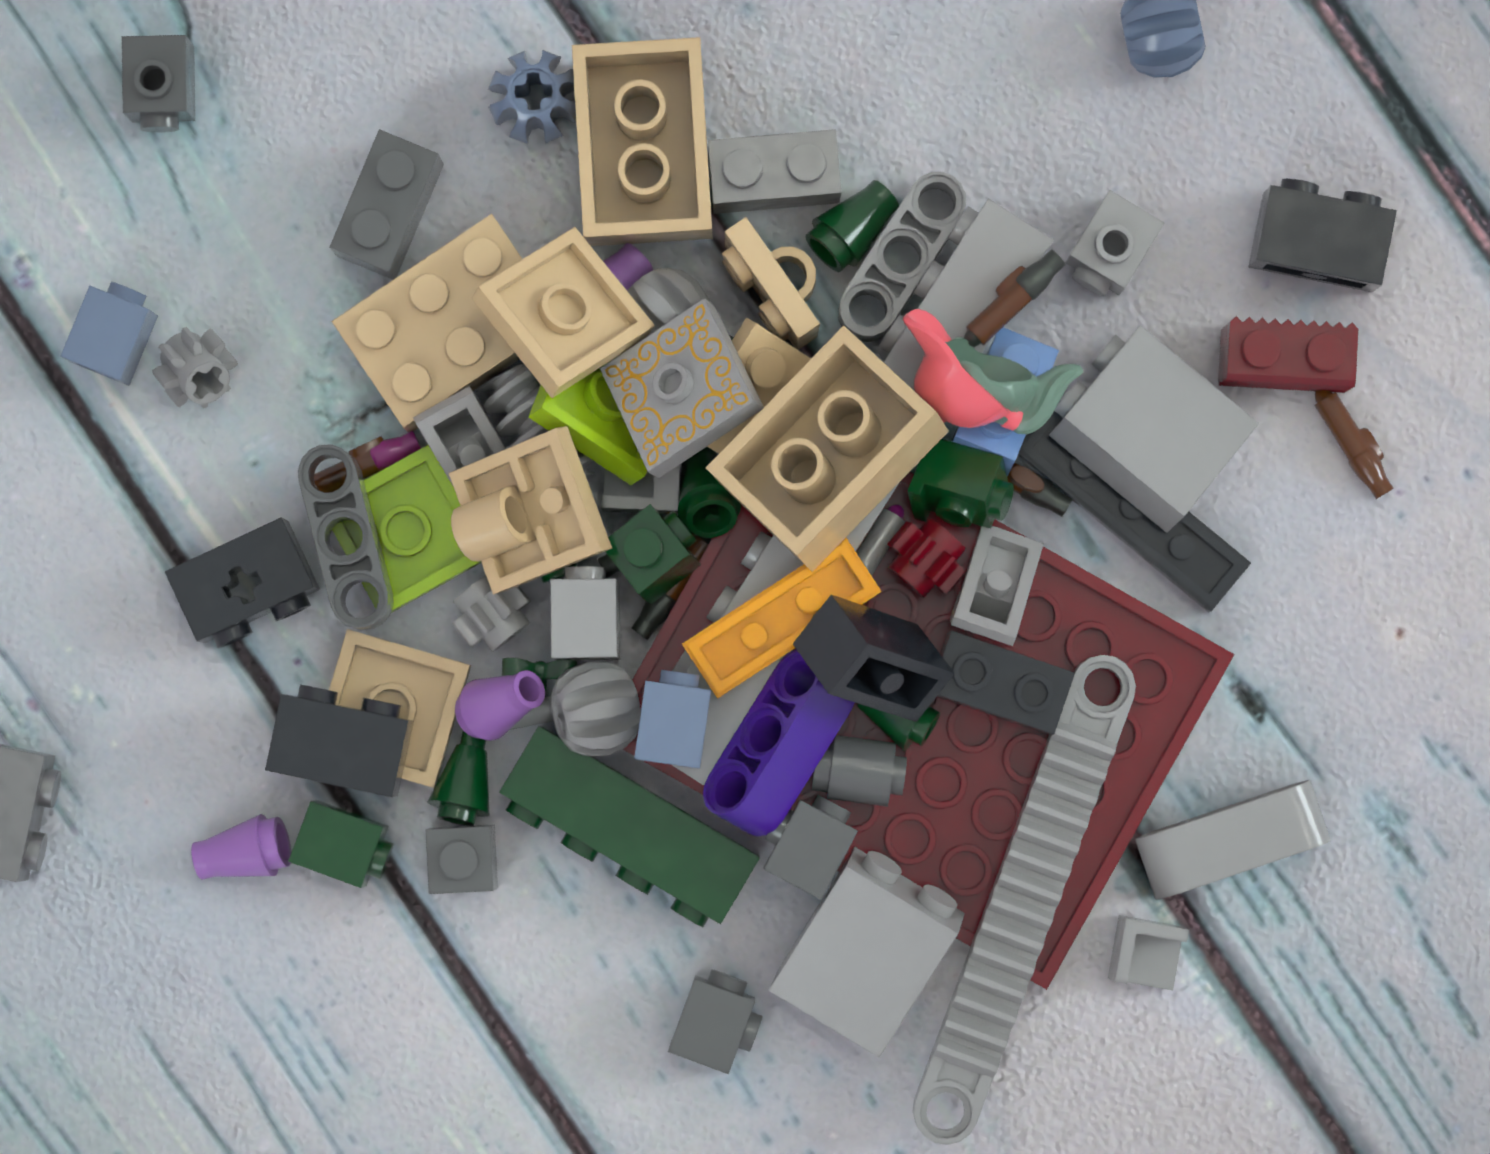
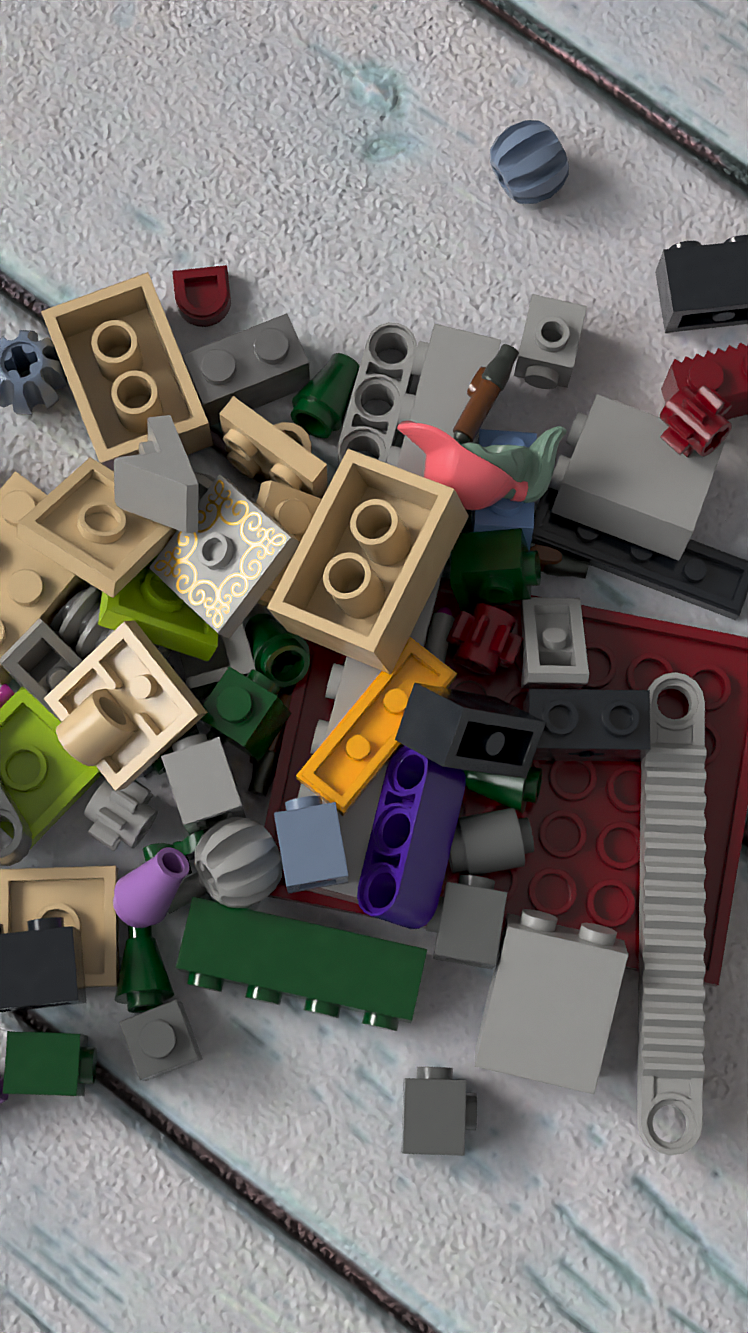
camera: 20 degrees left, 10 degrees down
(640, 286) = (159, 479): none -> light grey slope
(755, 62) = (202, 294): none -> dark red tile
(1229, 397) = (695, 421): none -> dark red gear

